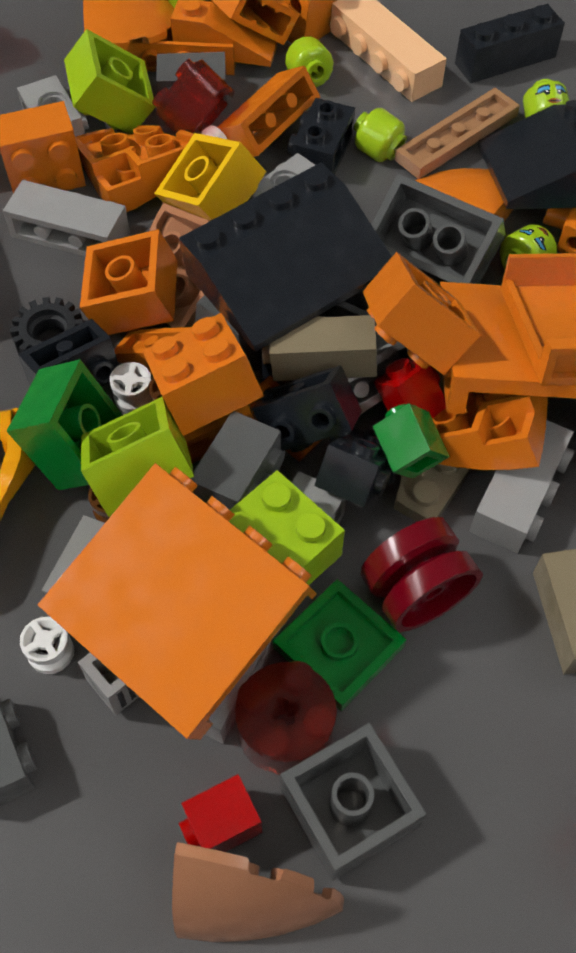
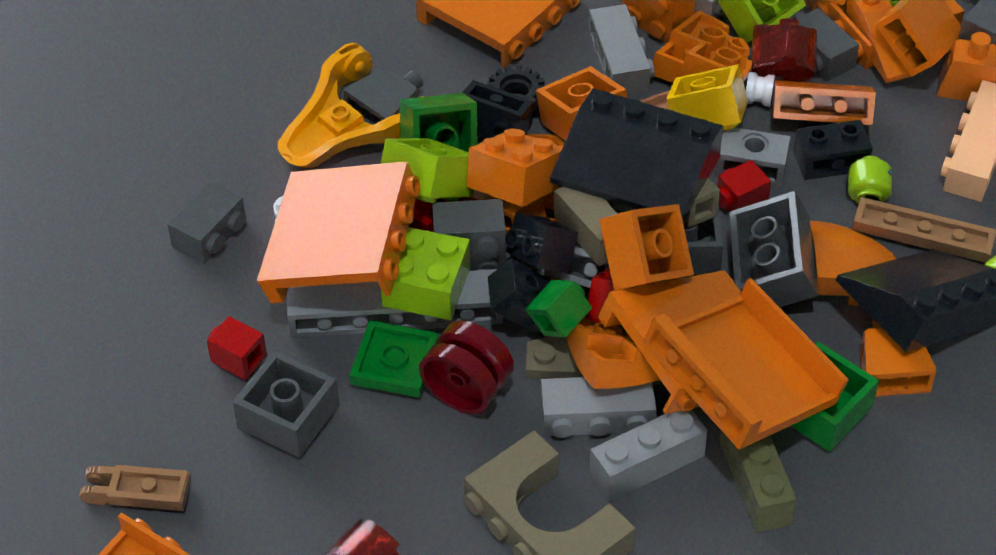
camera: 60 degrees right, 10 degrees down
(227, 901) = (190, 372): nougat brick -> none
(287, 690) = (322, 342): clear red brick -> none
(313, 55) = (909, 102): lime head -> none
(527, 240) = (826, 323): lime head -> none

